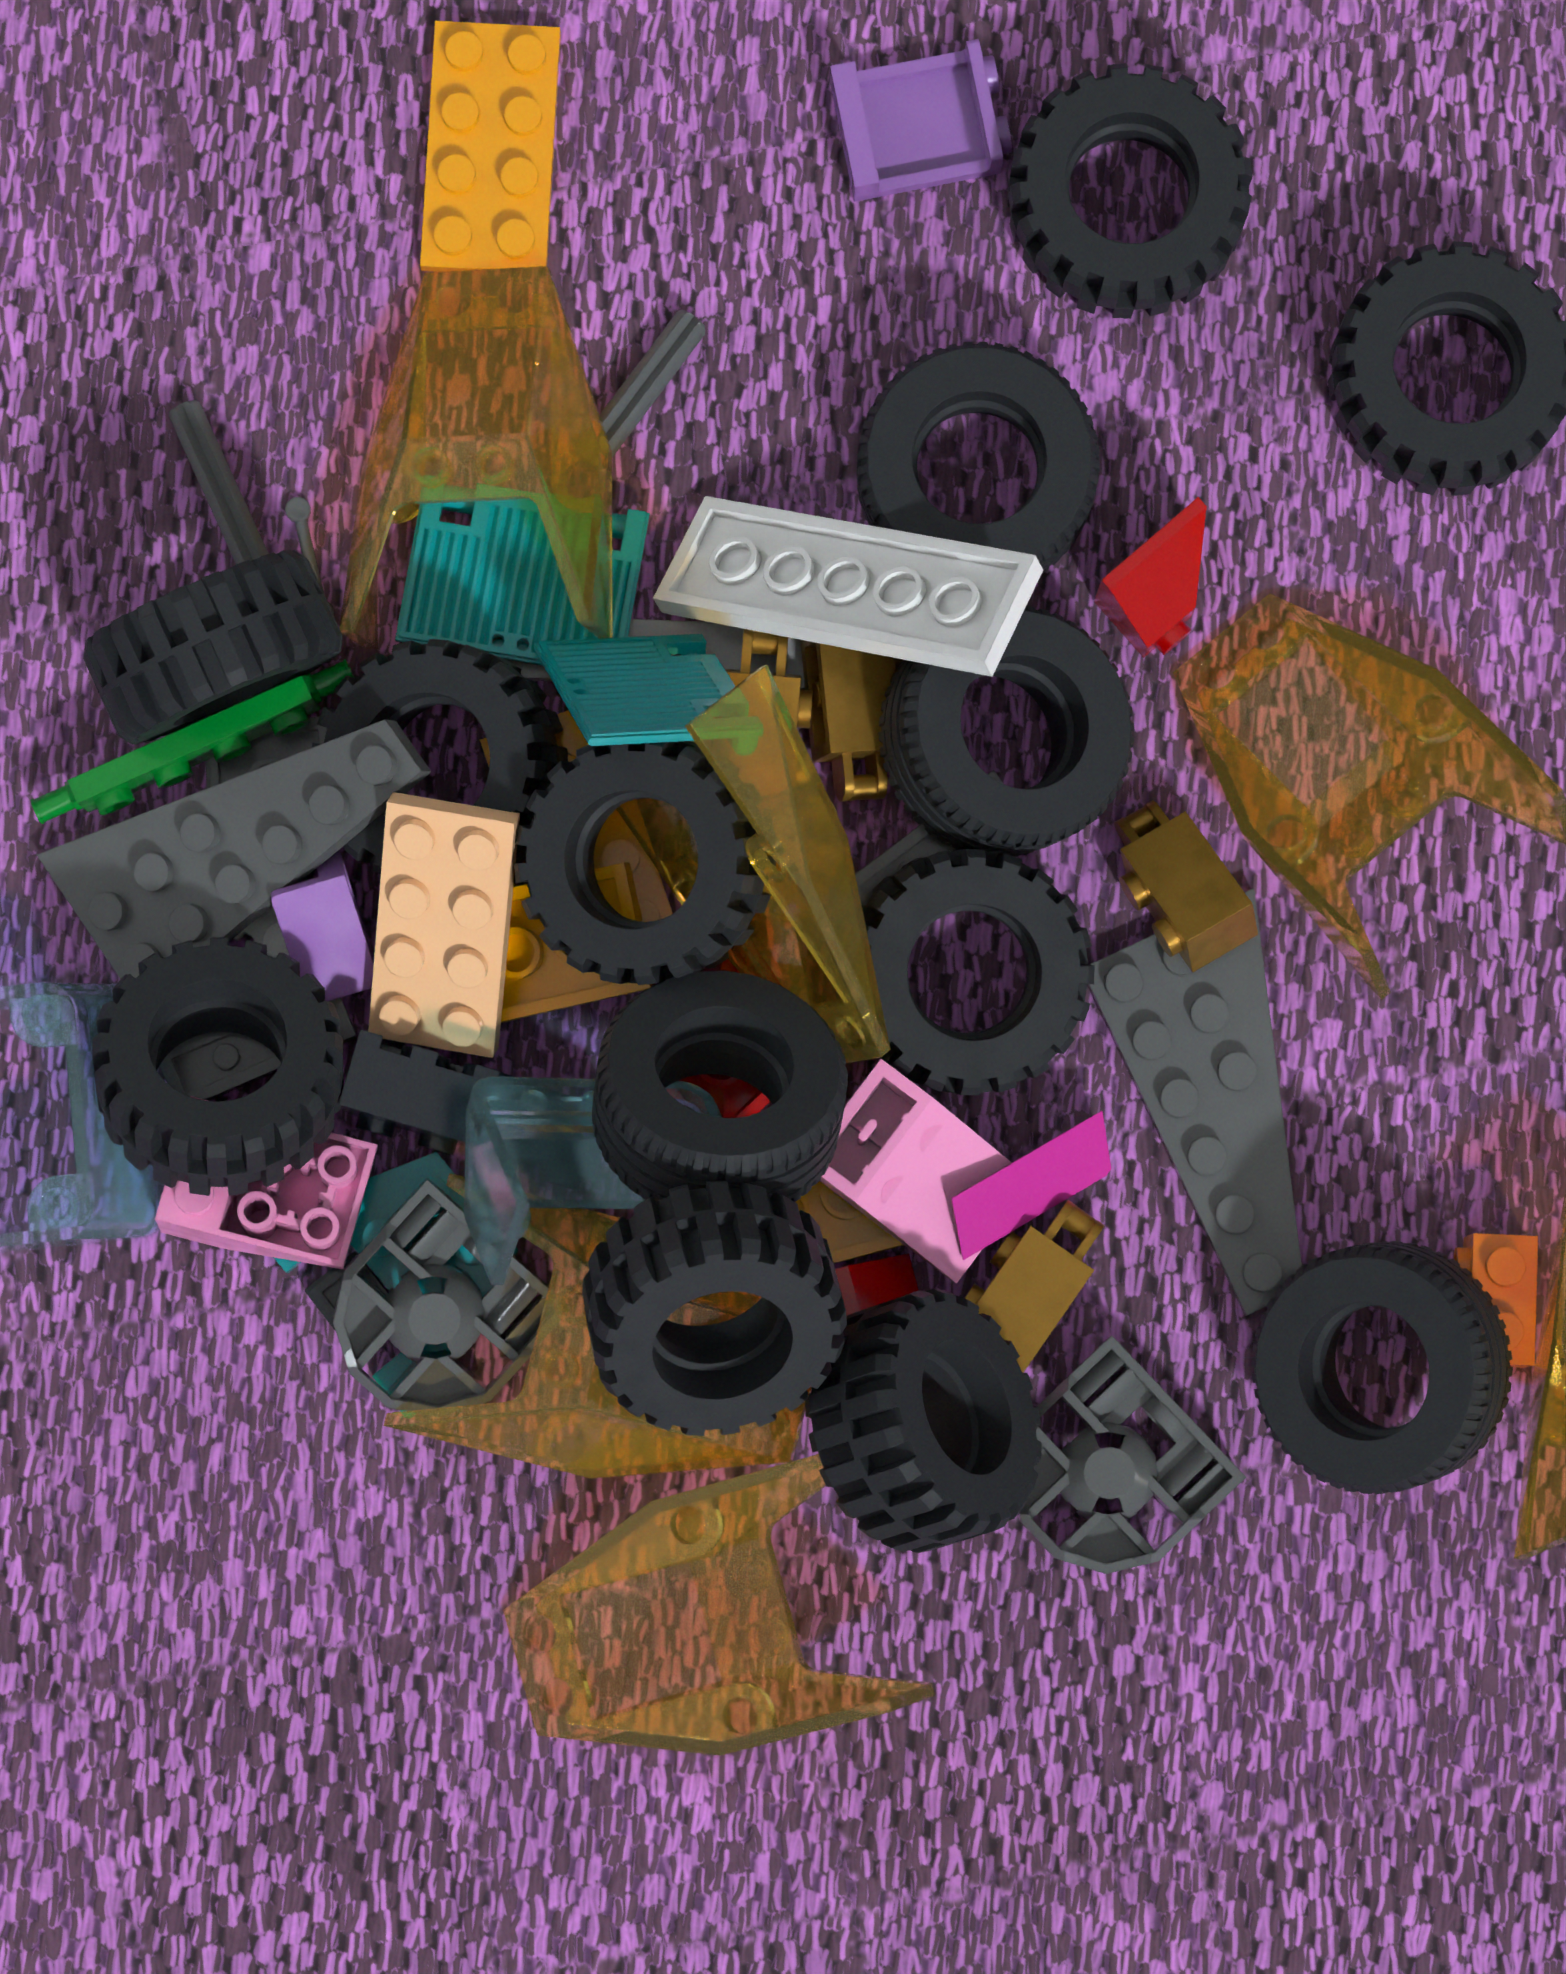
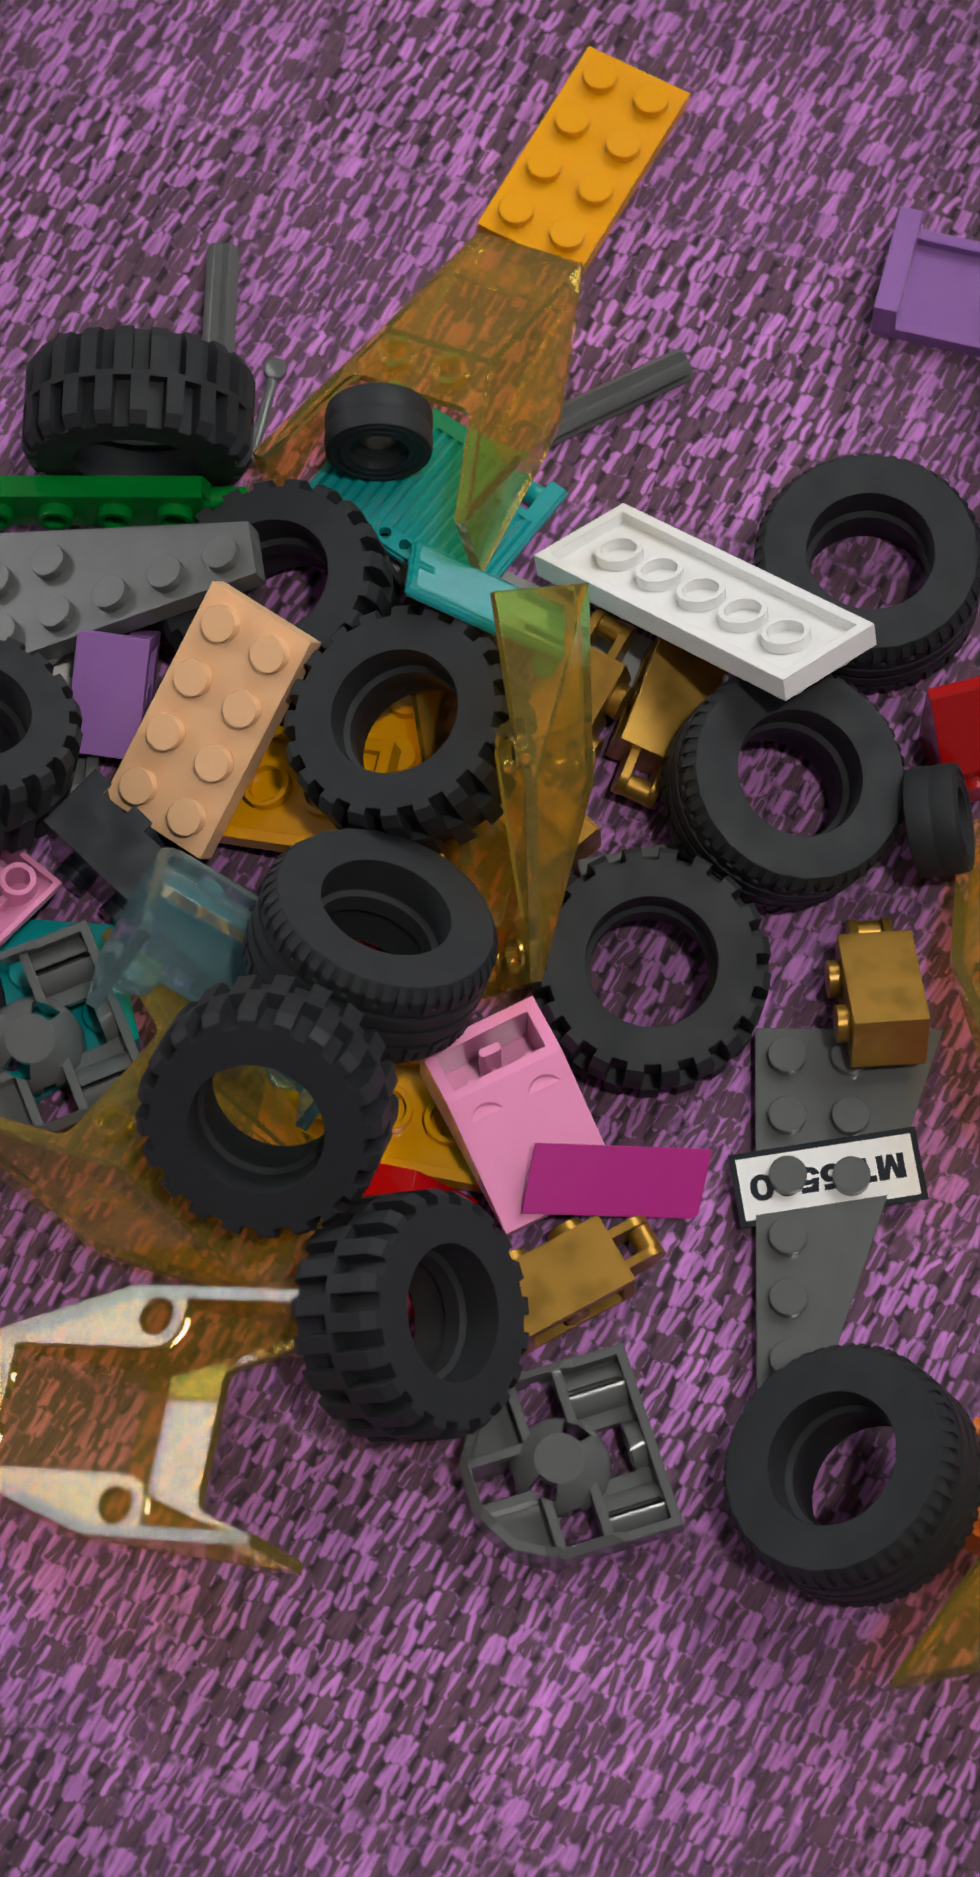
camera: 30 degrees right, 15 degrees down
(449, 550) = (378, 432): none -> black tyre
(1164, 695) = (938, 820): none -> black tyre
(1261, 1033) = (890, 1155): none -> white sticker

